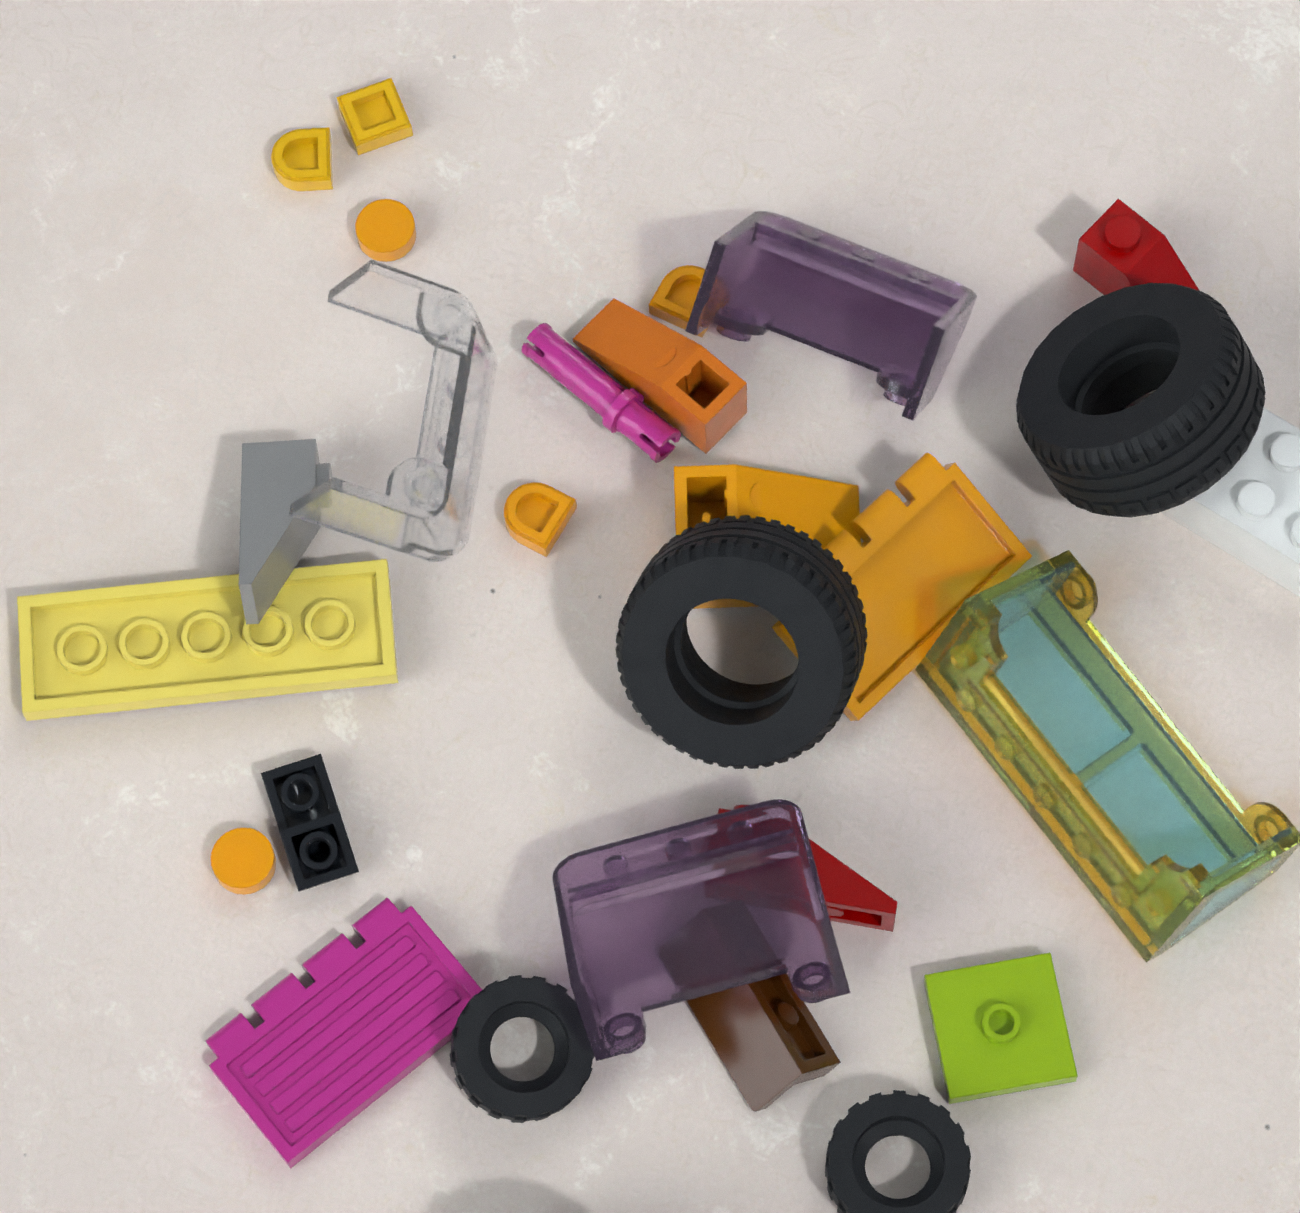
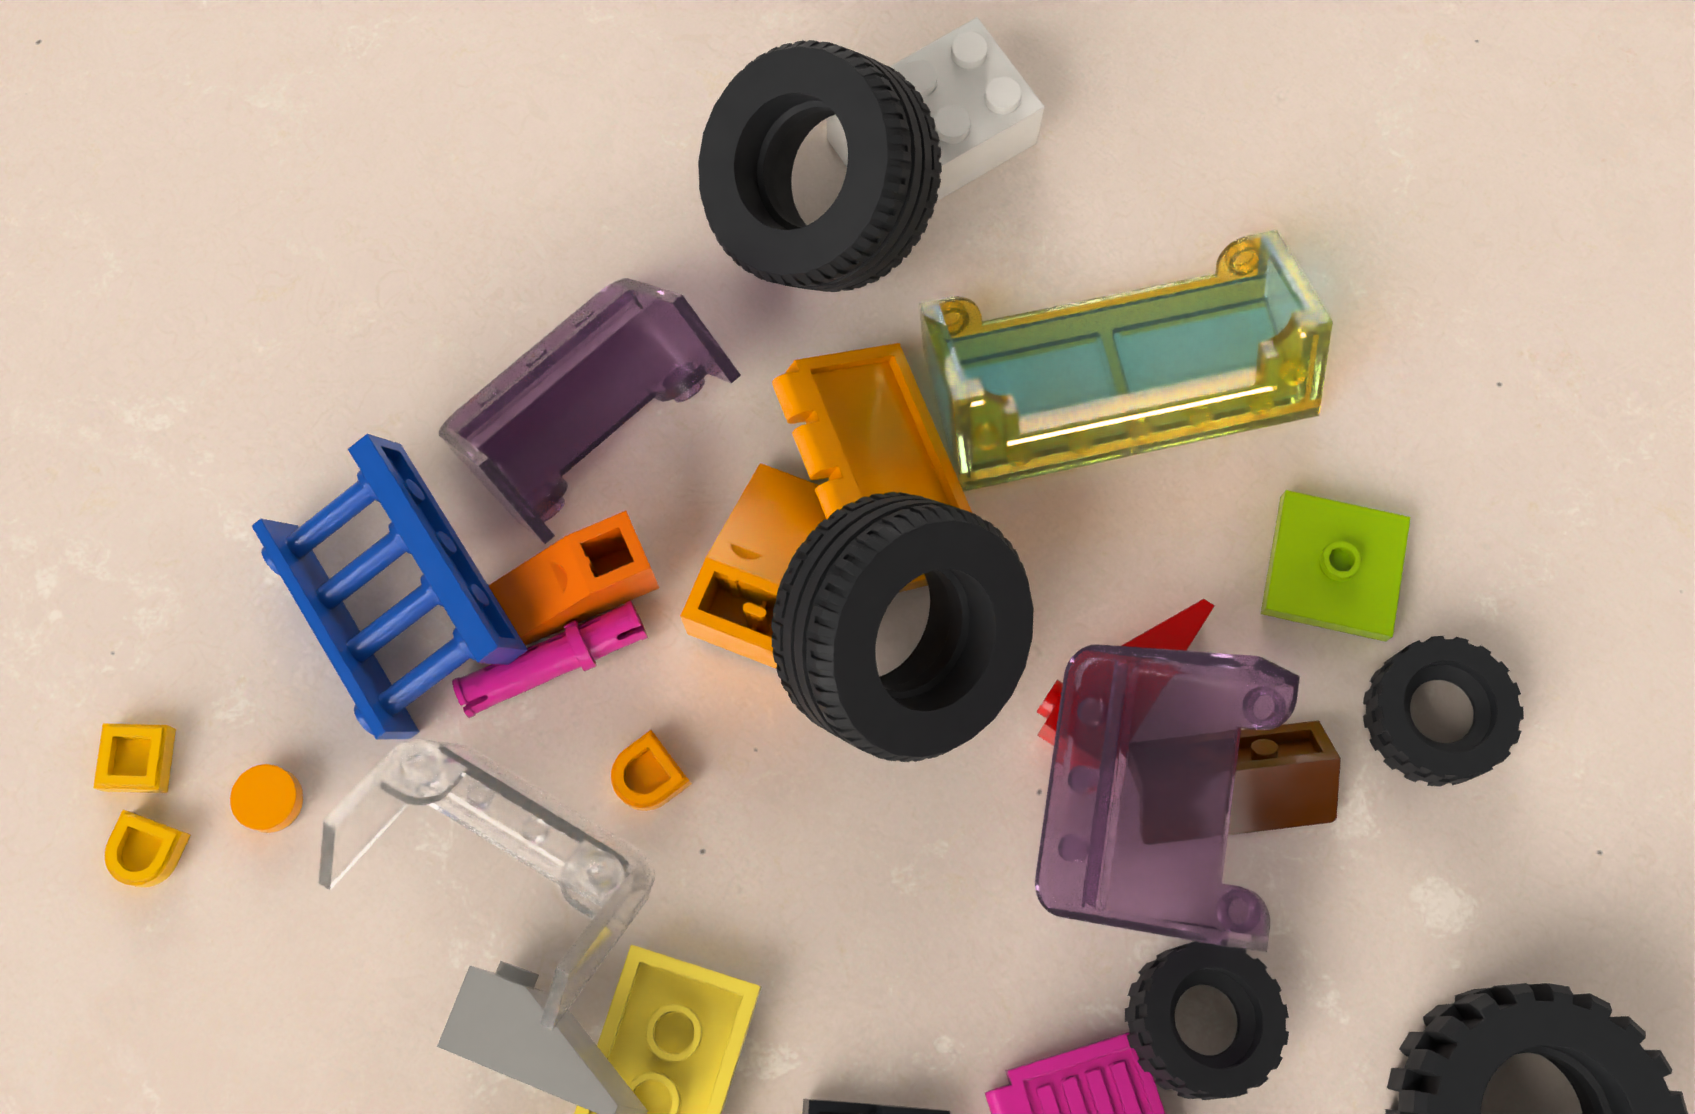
camera: 70 degrees left, 5 degrees up
(637, 264) = (447, 580): none -> blue fence
(677, 296) = (492, 537): light orange tile -> none
(1127, 252) = (657, 135): red slope -> none

